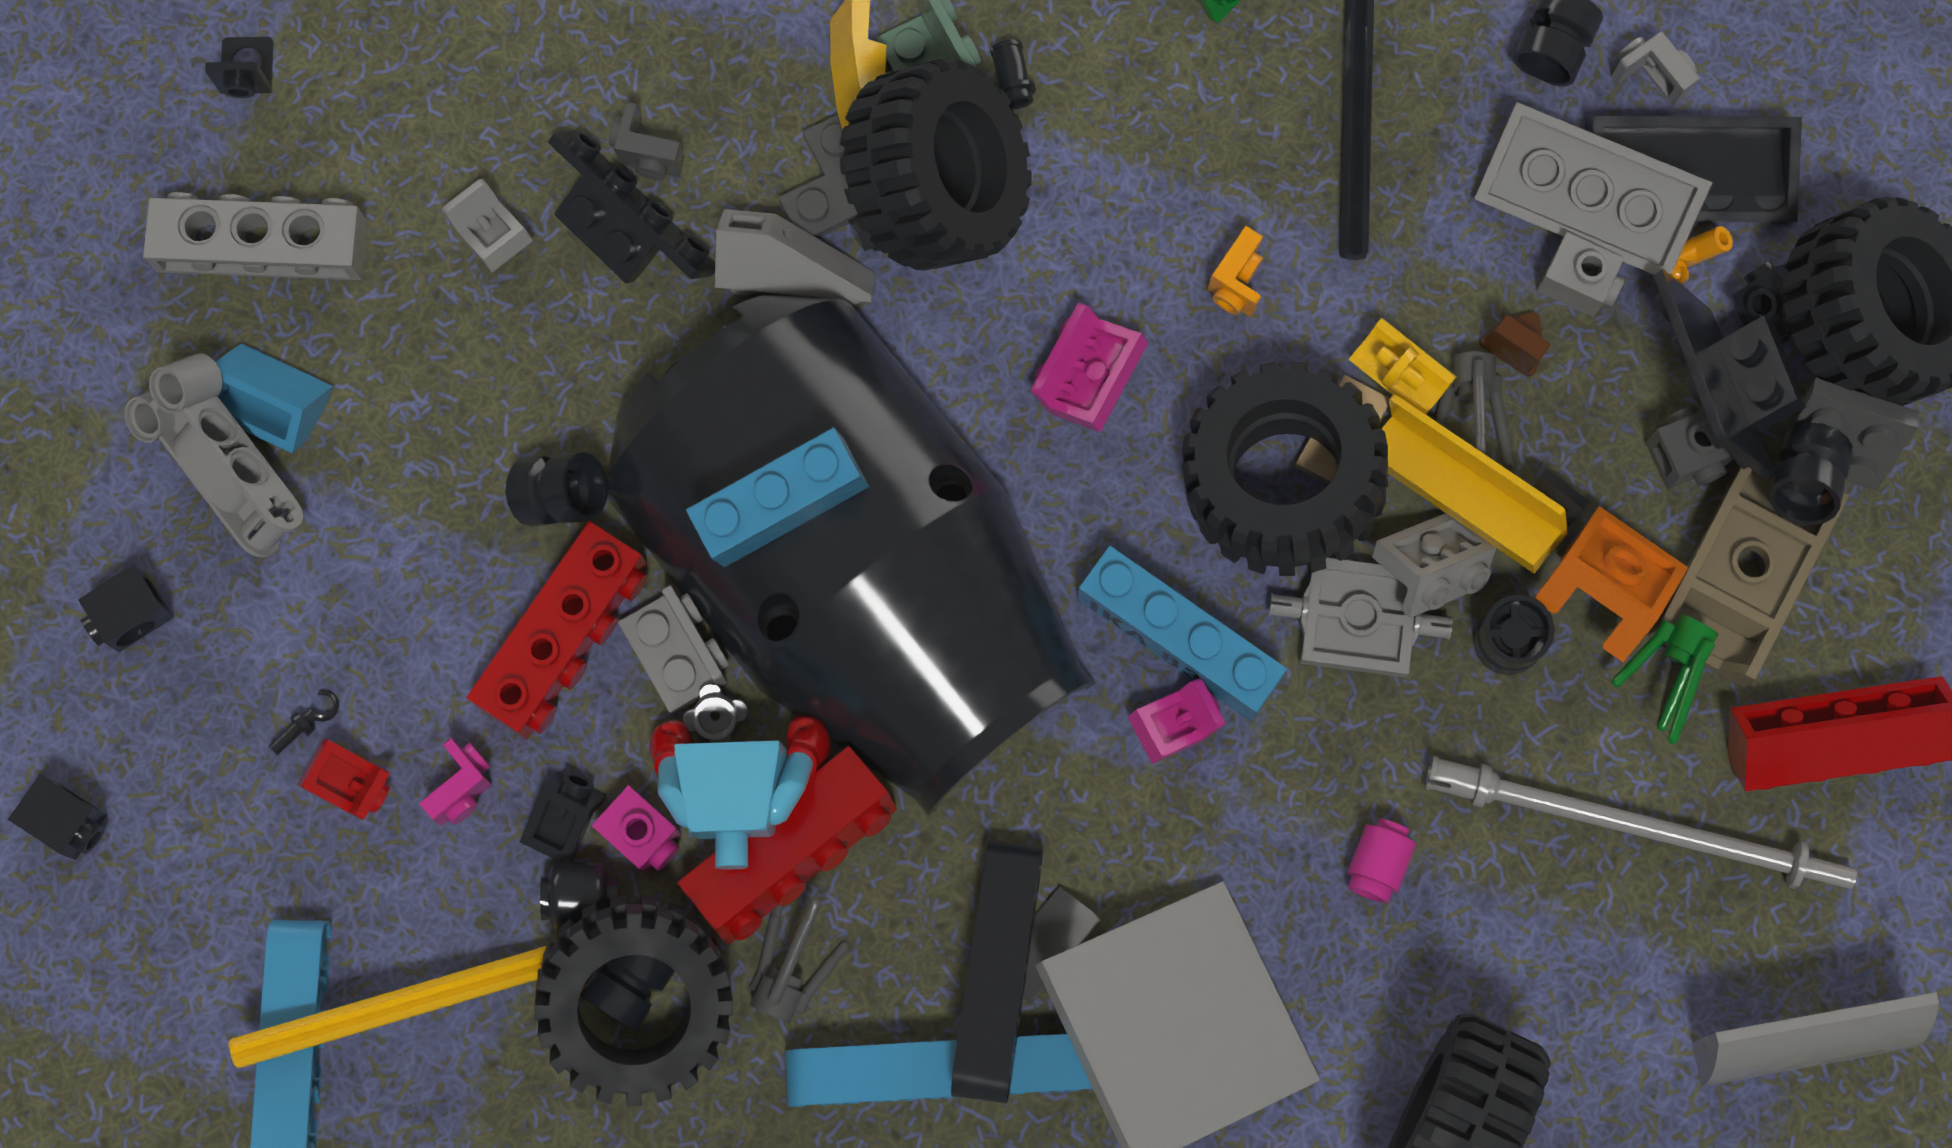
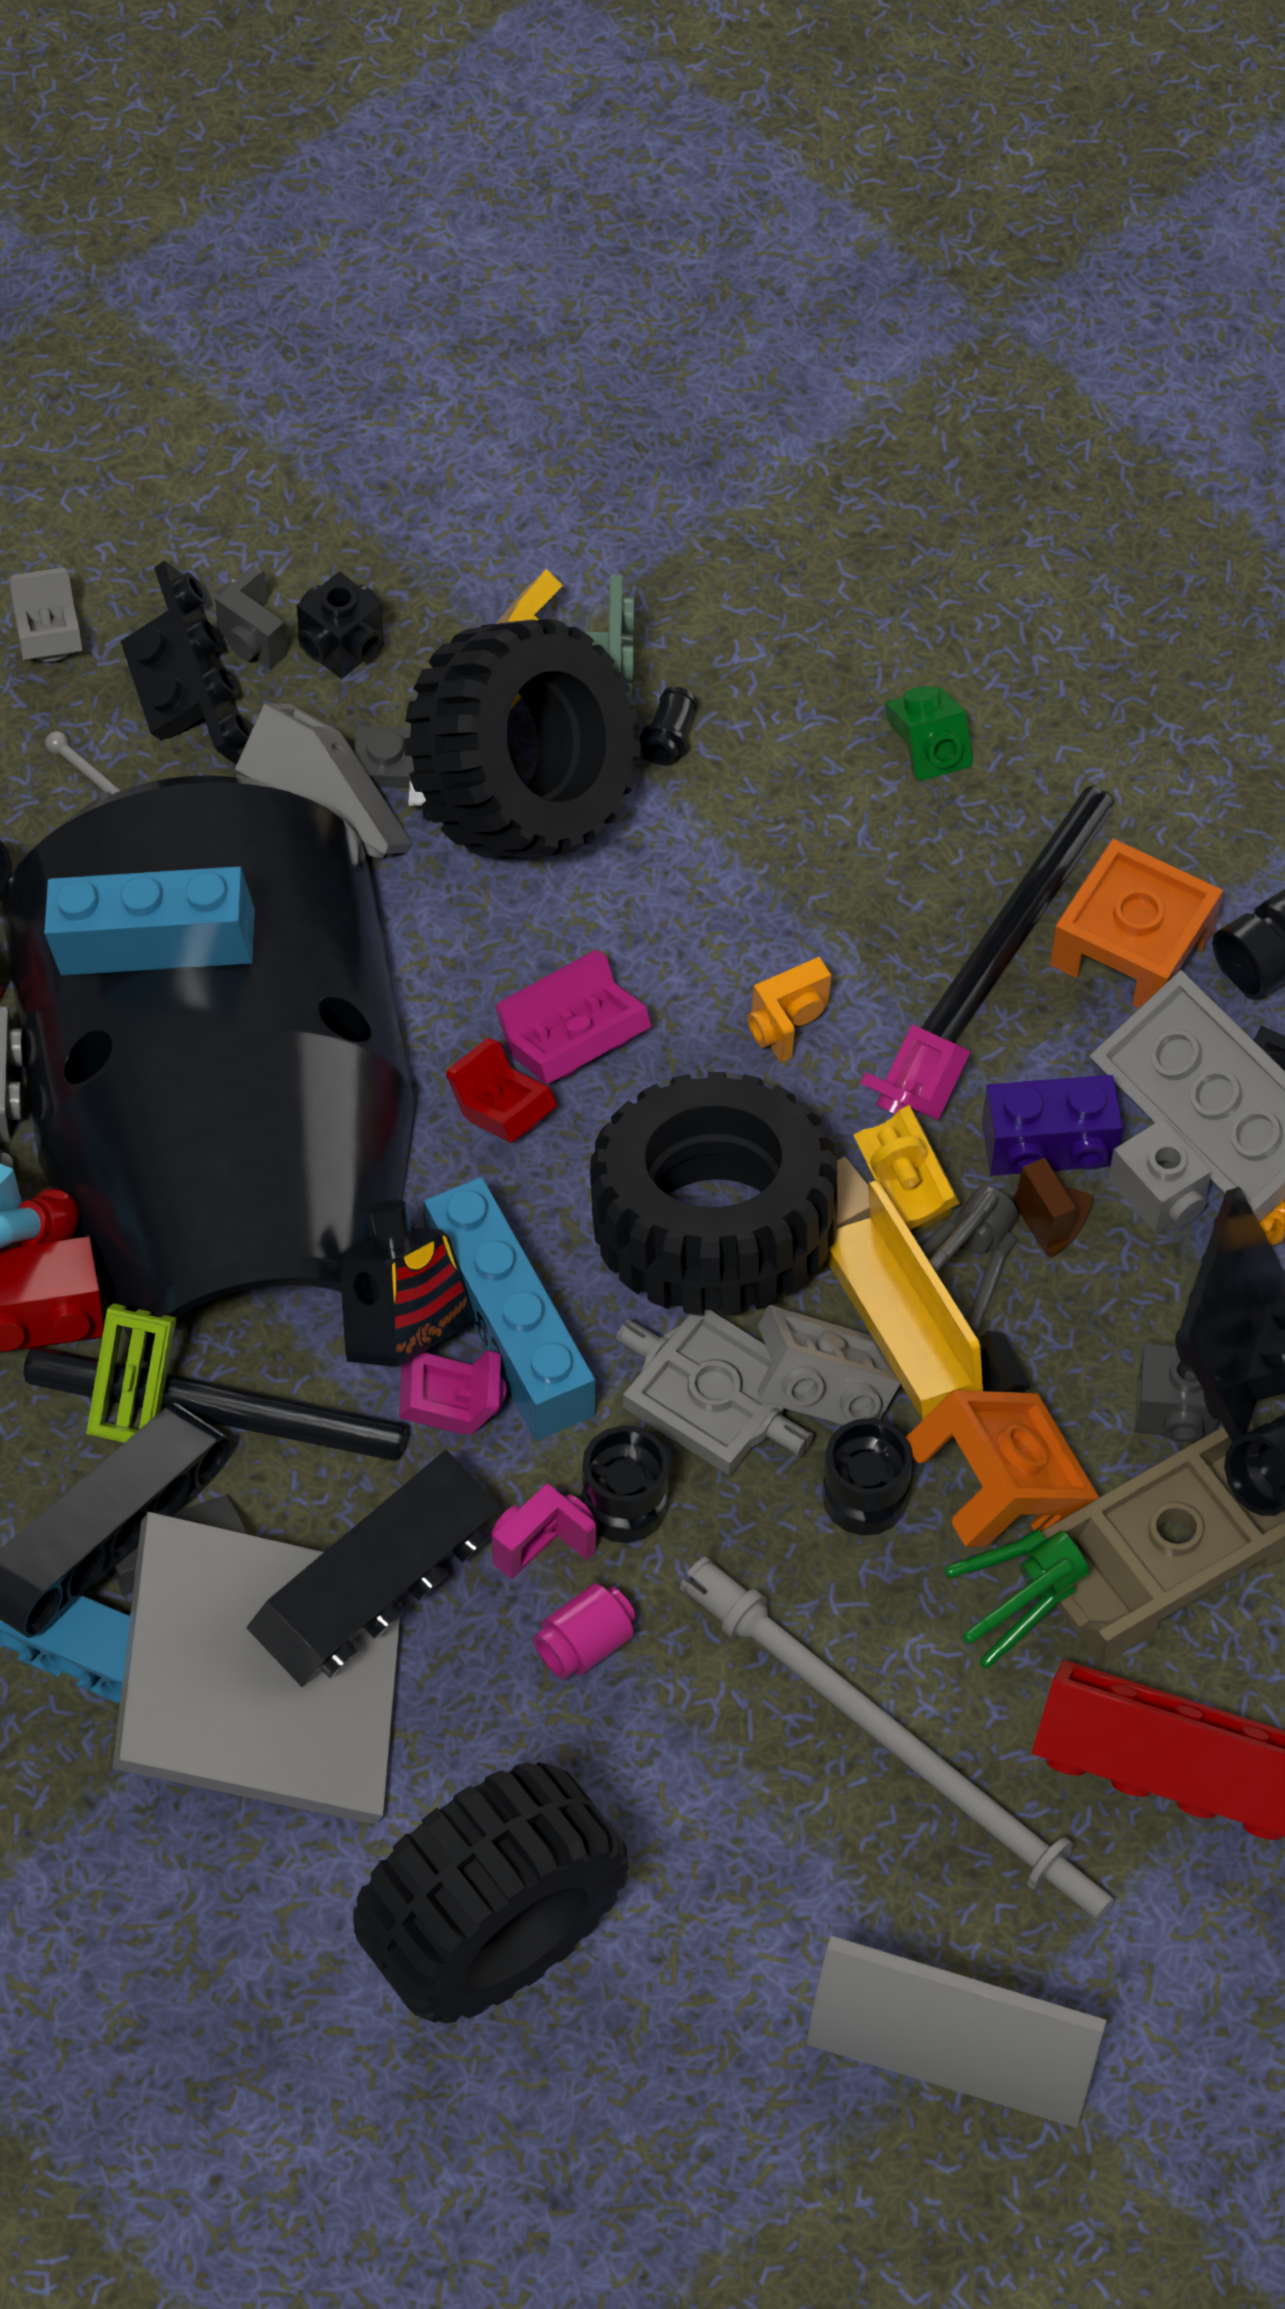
camera: 25 degrees right, 20 degrees down
(639, 349) = (58, 743): none -> light grey hinge
(721, 131) = (340, 624): none -> black brick
(937, 806) = (142, 1323): none -> lime tile
(1008, 819) = (229, 1406): none -> black axle
(1071, 459) = (497, 1095): none -> red bracket
(1108, 675) = (400, 1290): none -> black torso
(1216, 904) = (373, 1569): none -> black brick
(1293, 806) = (529, 1529): none -> dark pink bracket
(1347, 733) = (626, 1483): none -> black wheel
(1367, 284) = (920, 1074): none -> dark pink bracket
(1455, 71) = (1136, 919): none -> orange panel
(1483, 275) = (1063, 1119): none -> dark purple brick

